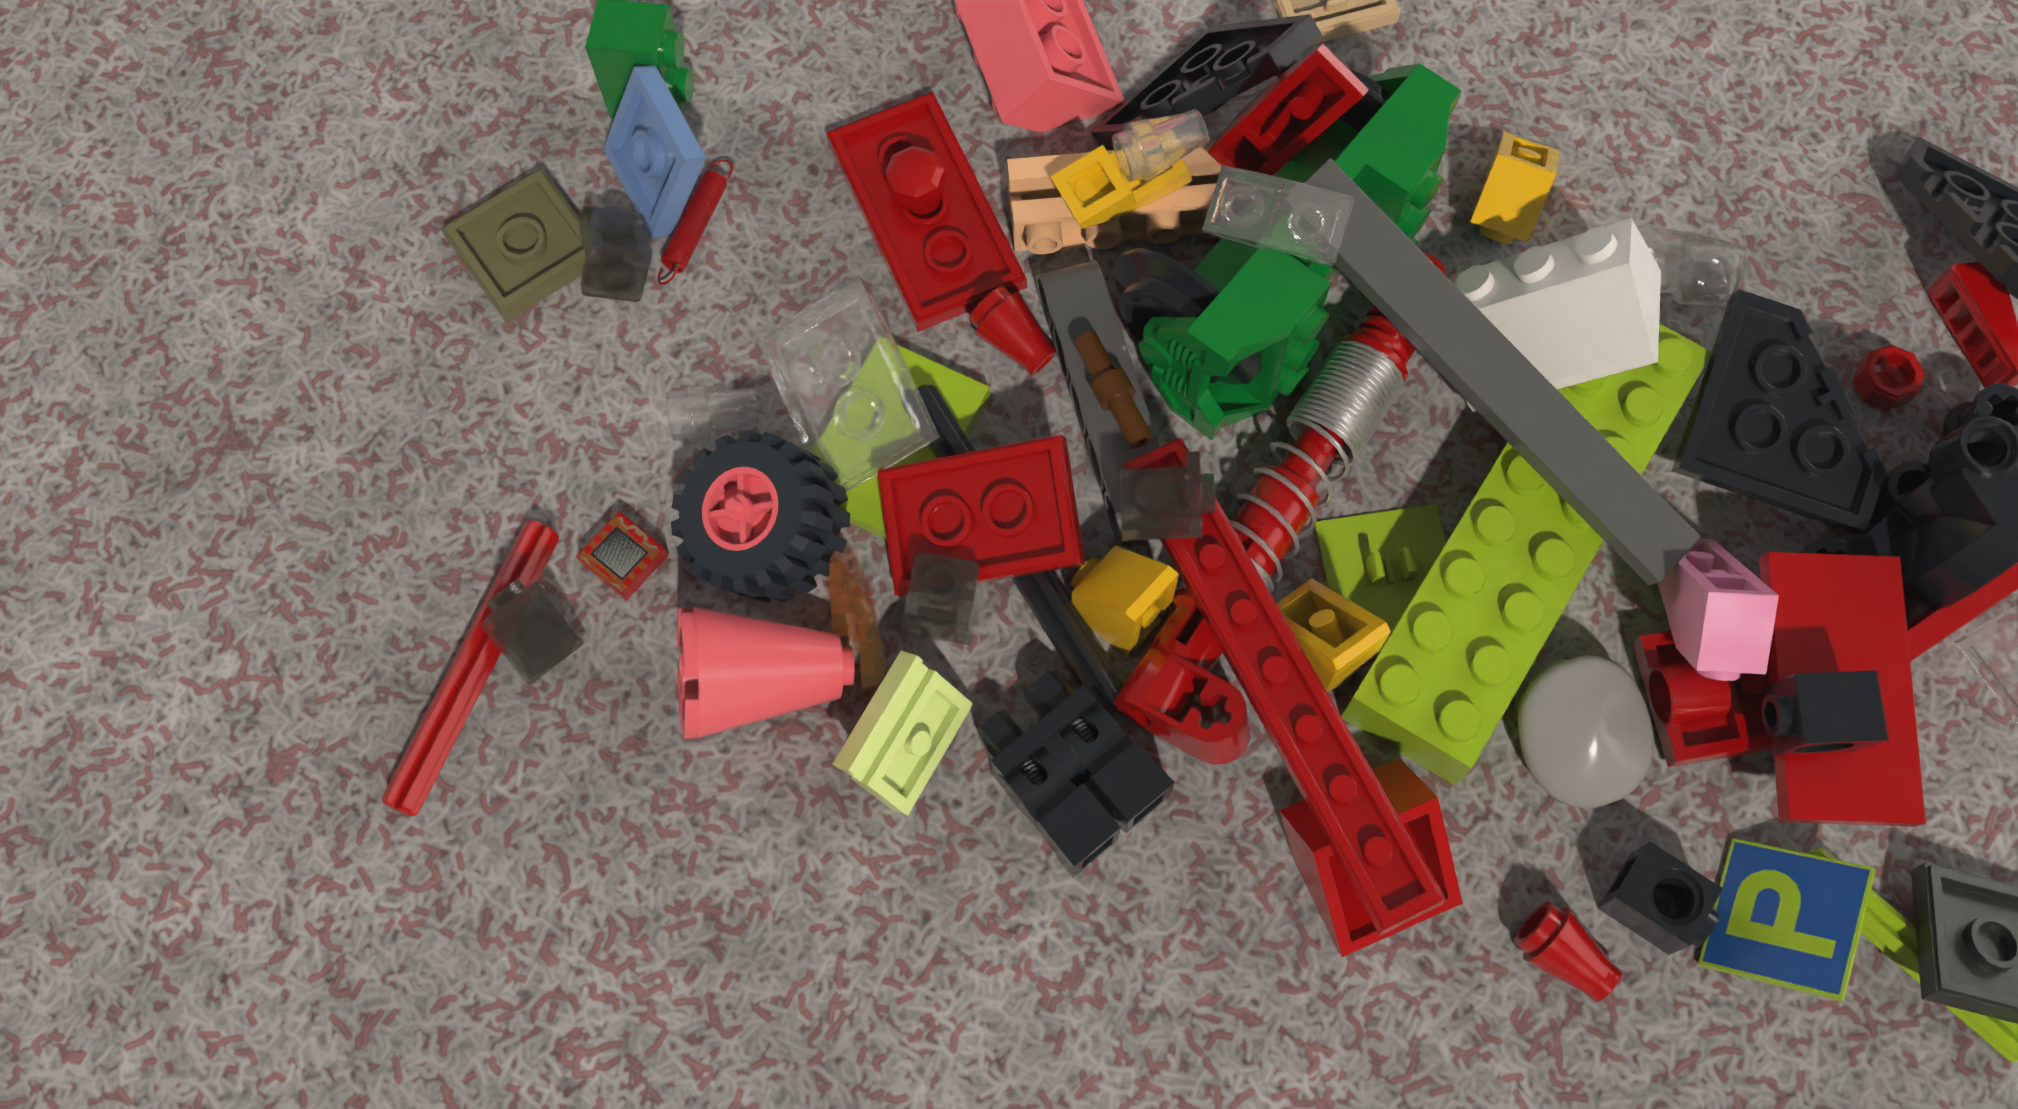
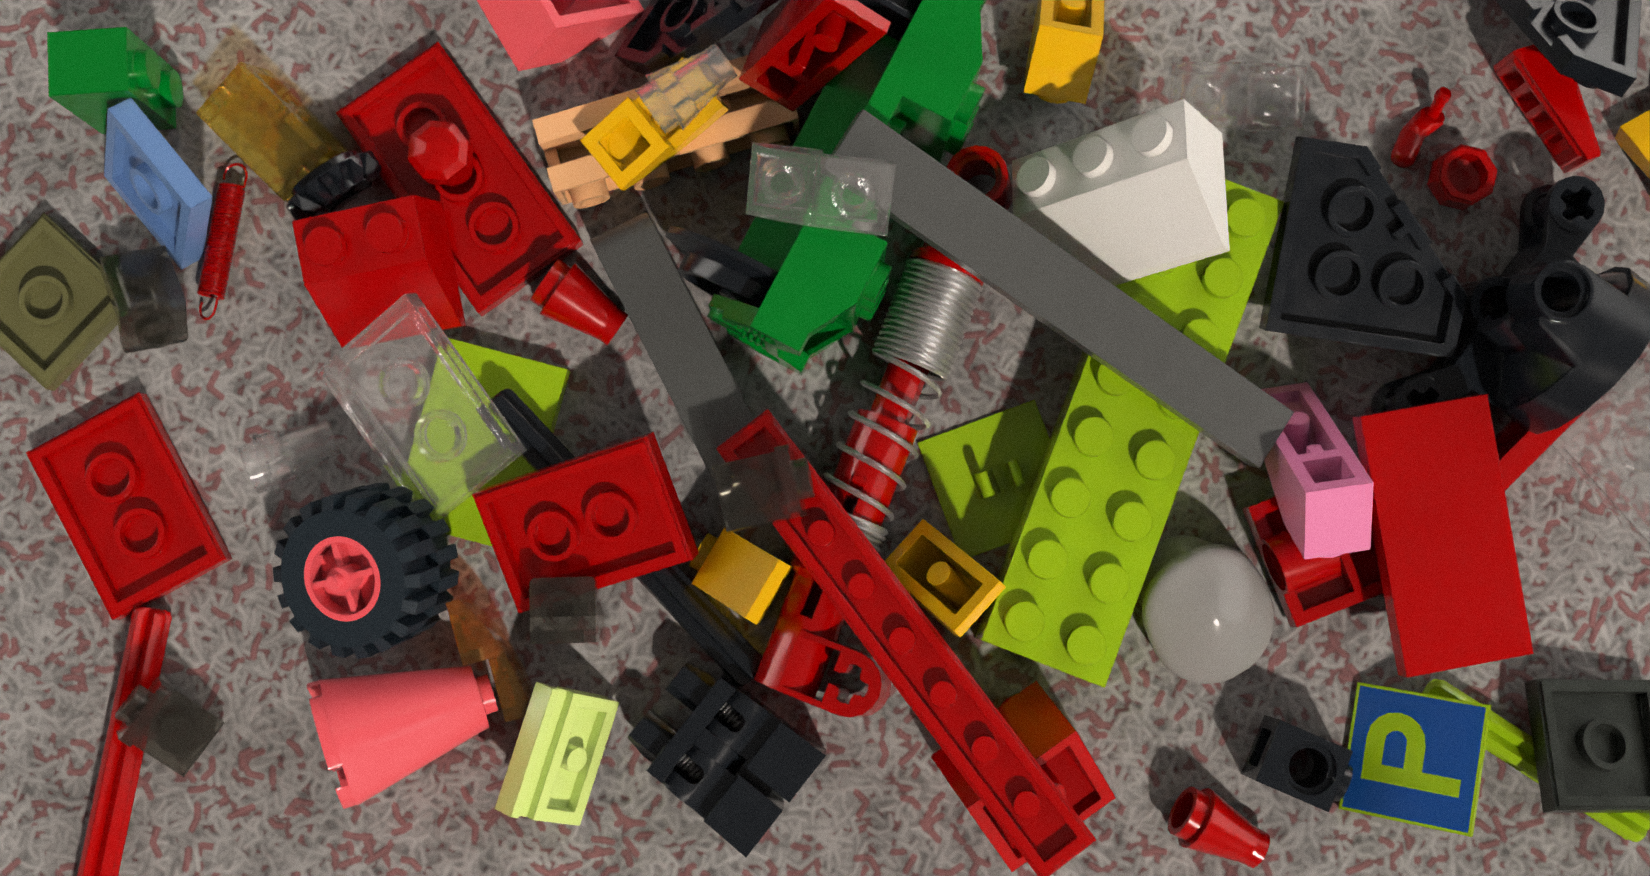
camera: 15 degrees left, 15 degrees up
(547, 433) = (129, 506): none -> red tile
(622, 555) = (239, 622): tile -> none
(766, 137) = (269, 128): none -> clear yellow hinge
(811, 184) = (333, 184): none -> black gear
(831, 239) = (373, 255): none -> red slope
(1113, 389) = (690, 363): reddish brown bar -> none
(1824, 712) = (1429, 579): black brick -> none
(1850, 329) = (1418, 128): none -> red piece

